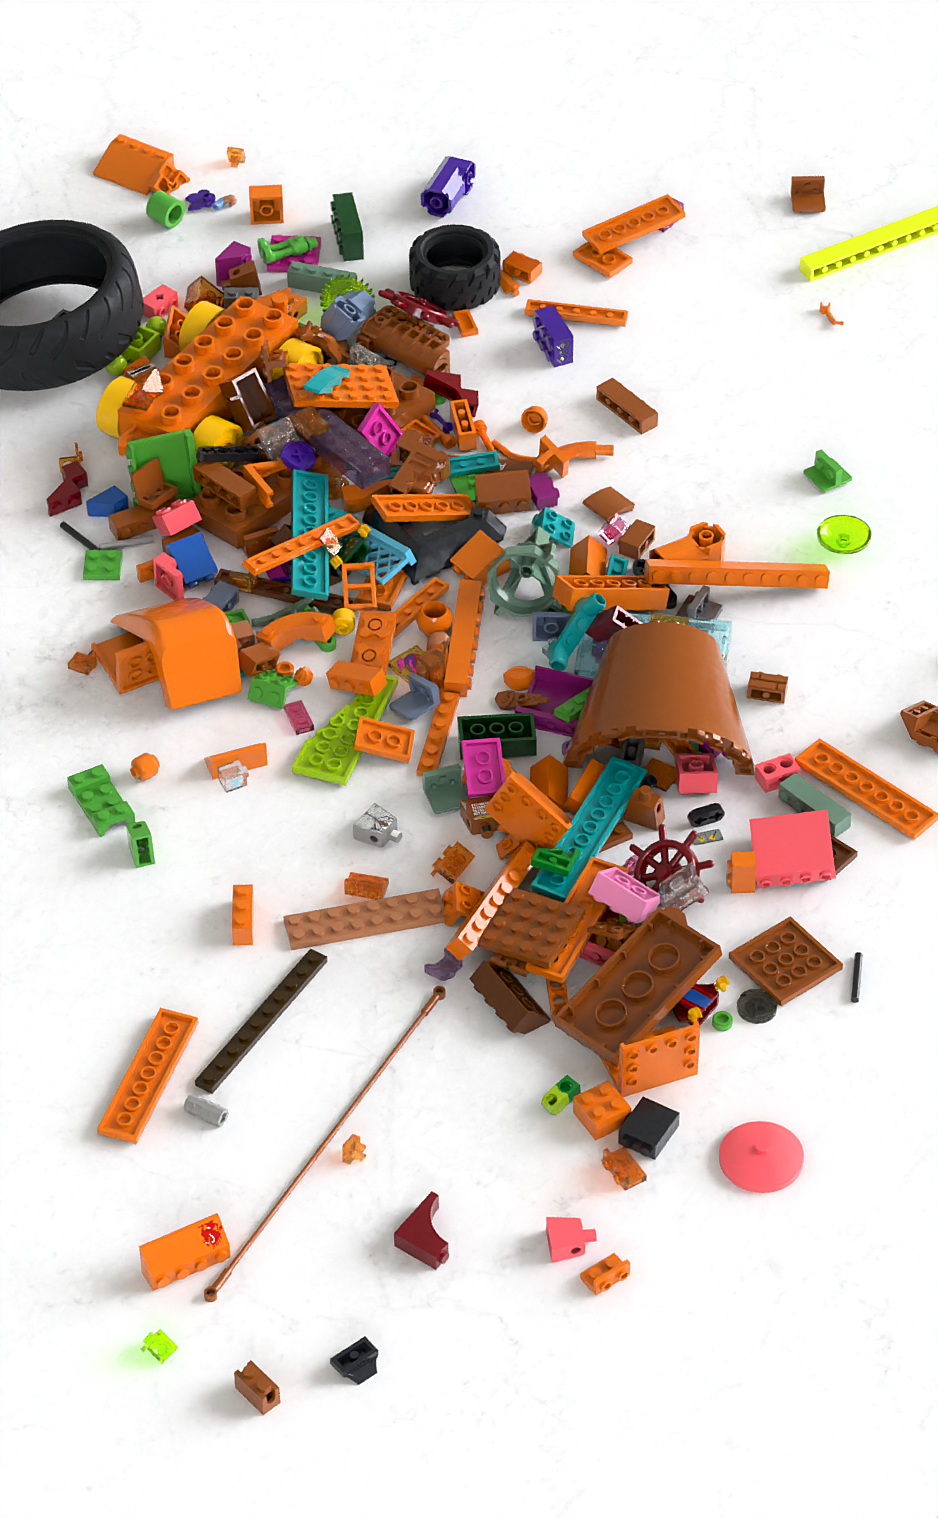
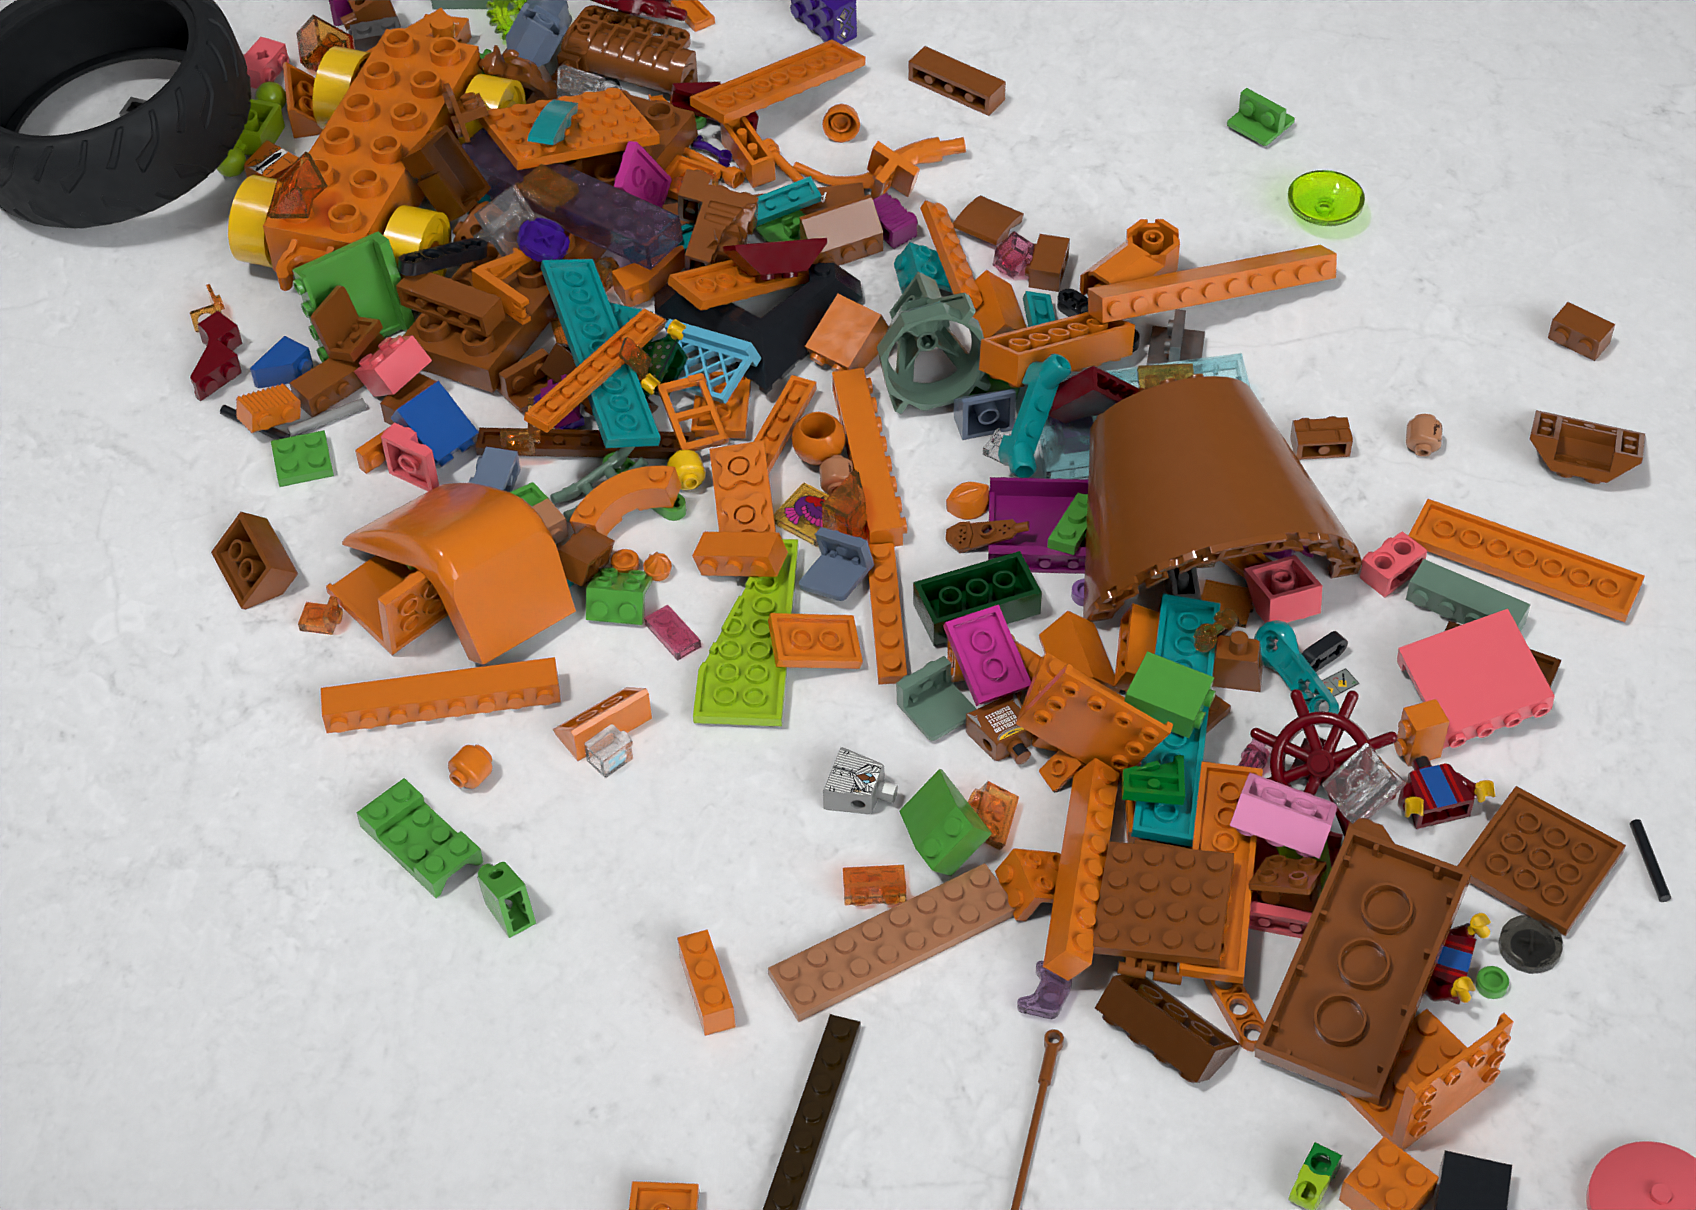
camera: 15 degrees left, 5 degrees up
(52, 620) = (253, 561): none -> dark orange slope
(90, 528) = (268, 408): none -> orange brick
(141, 722) = (440, 695): none -> orange brick
(420, 861) = (943, 825): none -> bright green slope
(448, 498) = (776, 257): none -> dark red wedge
(500, 382) = (777, 81): none -> orange plate
(571, 520) = (950, 251): none -> orange plate
(586, 812) = (1171, 693): none -> bright green brick
(626, 783) = (1206, 634): none -> clear orange bar
(675, 808) = (1292, 665): none -> teal beam
(738, 910) = (1440, 794): none -> torso
(837, 699) = (1424, 434): none -> nougat head

